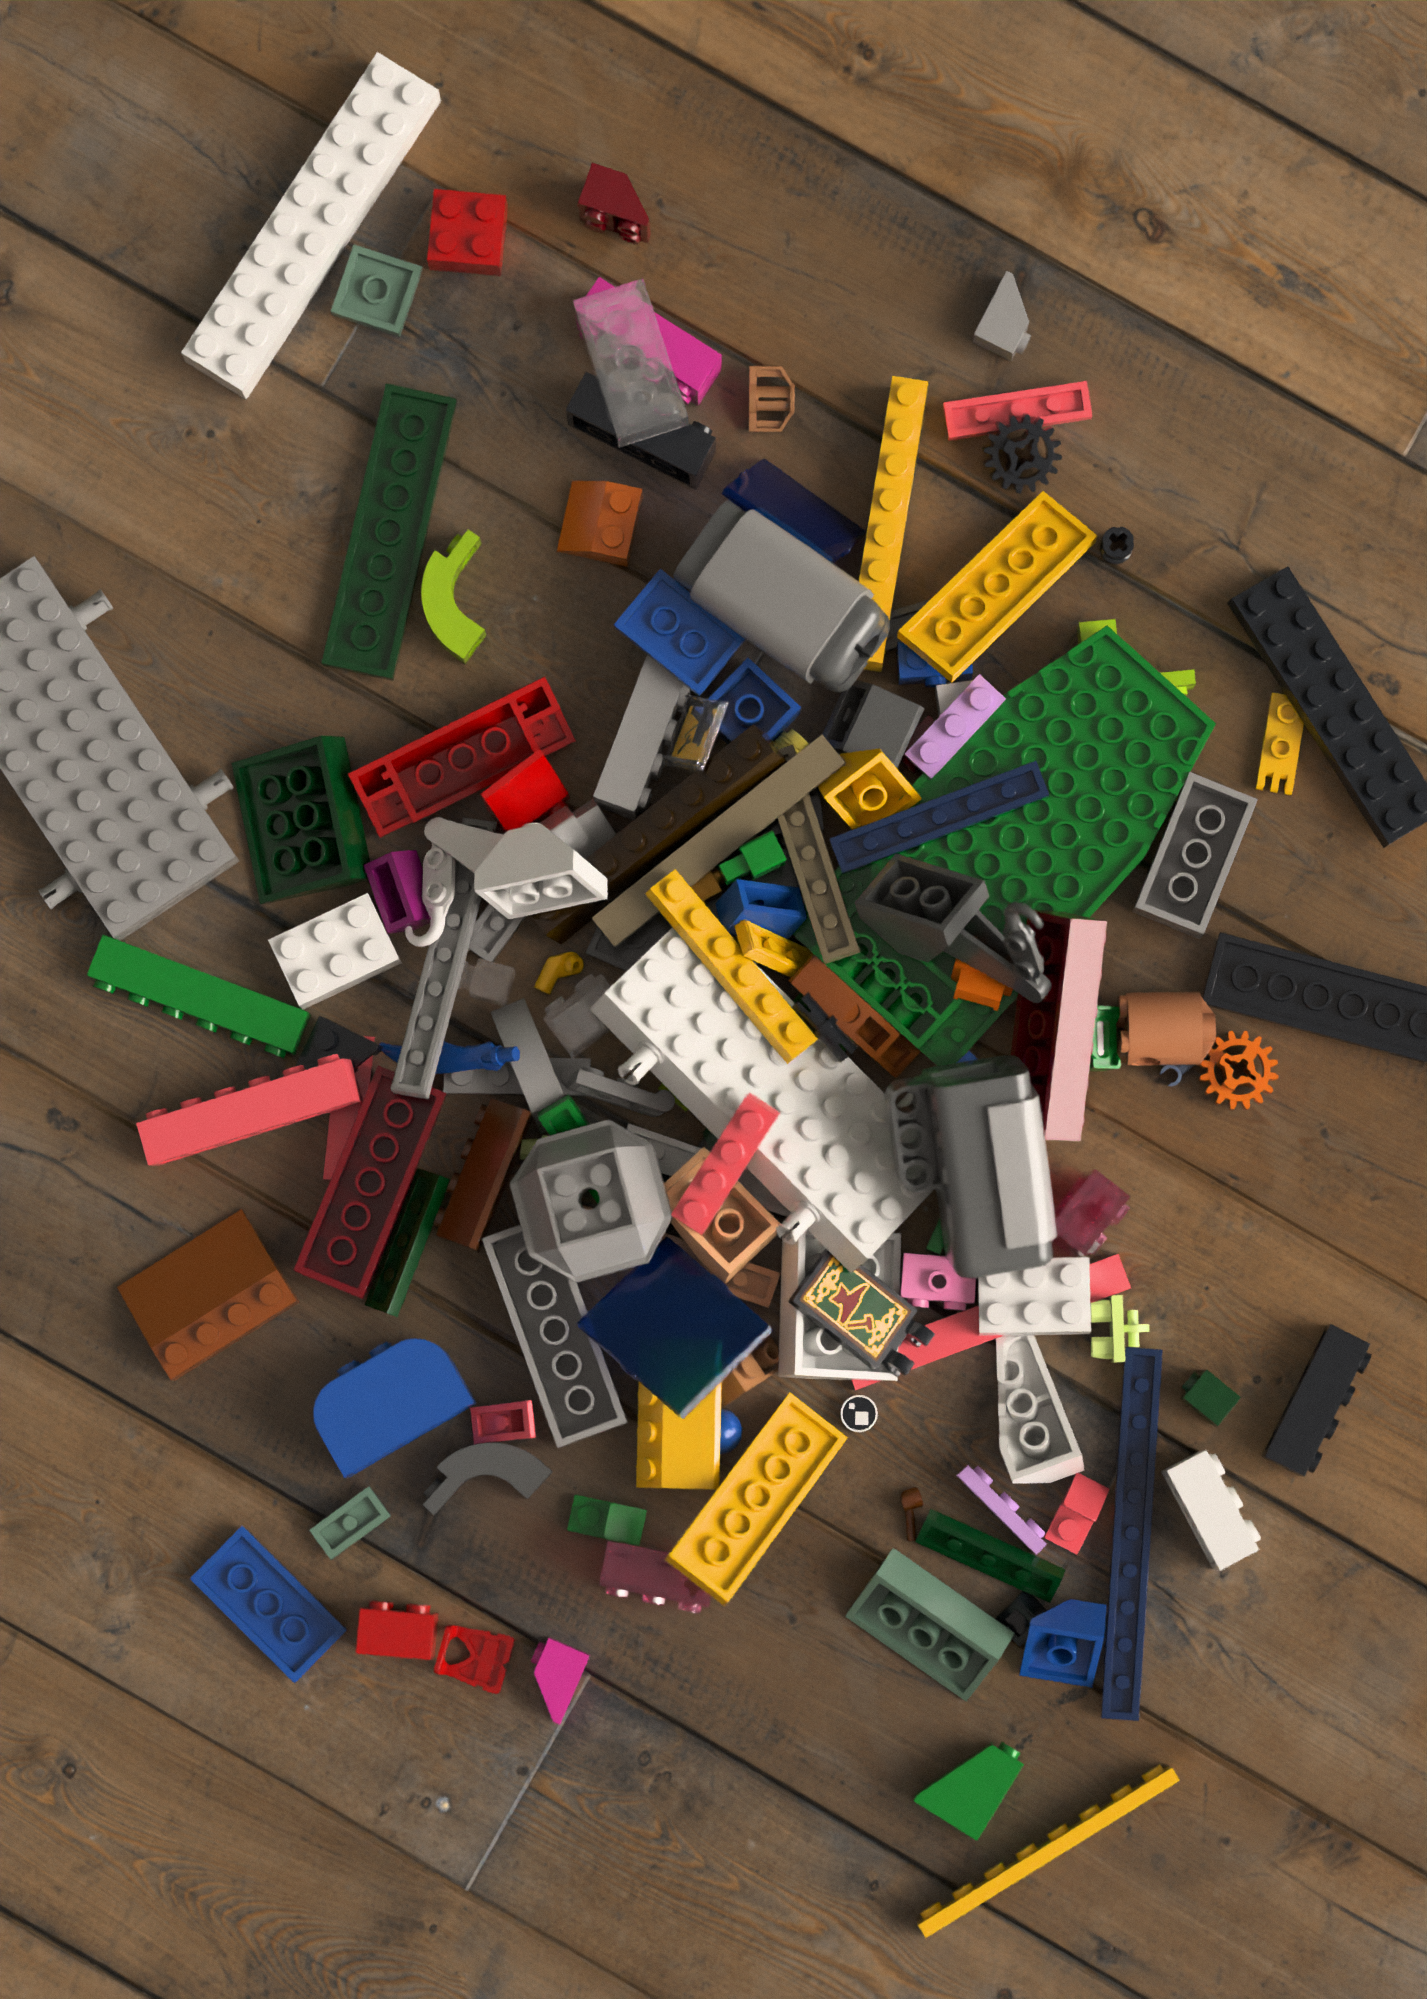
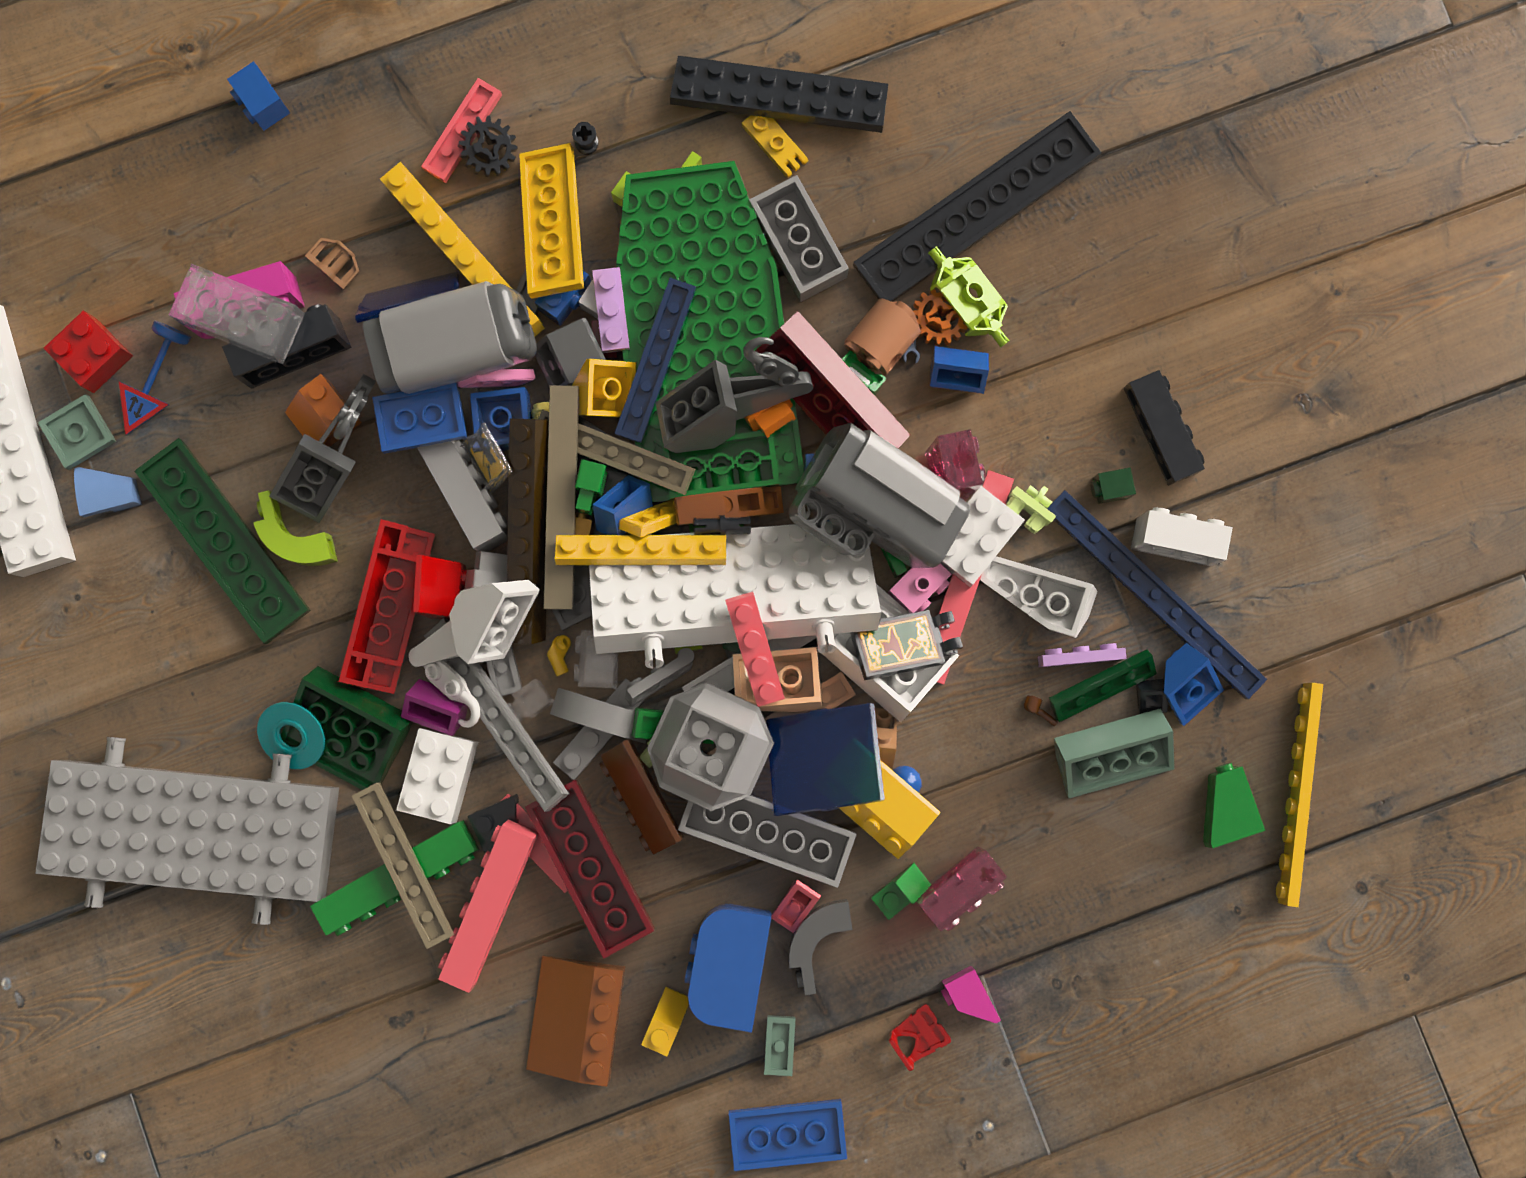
camera: 55 degrees left, 0 degrees up
(220, 993) = (403, 865): none -> dark tan plate
(279, 765) = (295, 715): none -> teal piece
(280, 1387) = (666, 1021): none -> yellow slope
(339, 369) = (104, 492): none -> medium blue slope
(397, 1632) = (867, 1073): red brick -> none
(407, 1242) = (643, 874): dark green plate -> none
(455, 327) = (138, 405): none -> blue piece
(458, 1058) = (560, 756): blue sword -> none
(537, 570) = (317, 470): none -> dark grey slope
(613, 205) = (144, 254): dark red slope -> none
(756, 1499) = (964, 796): yellow plate -> none
(798, 684) = (499, 378): none -> bright pink tile
(858, 1413) = (958, 693): black tile -> none
(874, 175) = (258, 96): none -> blue brick
(1004, 322) = (405, 95): light grey slope -> none
(1076, 1513) = (1117, 616): coral slope -> none
(1196, 1136) = (959, 369): none -> blue brick
(1280, 1054) = (980, 314): none -> lime plate

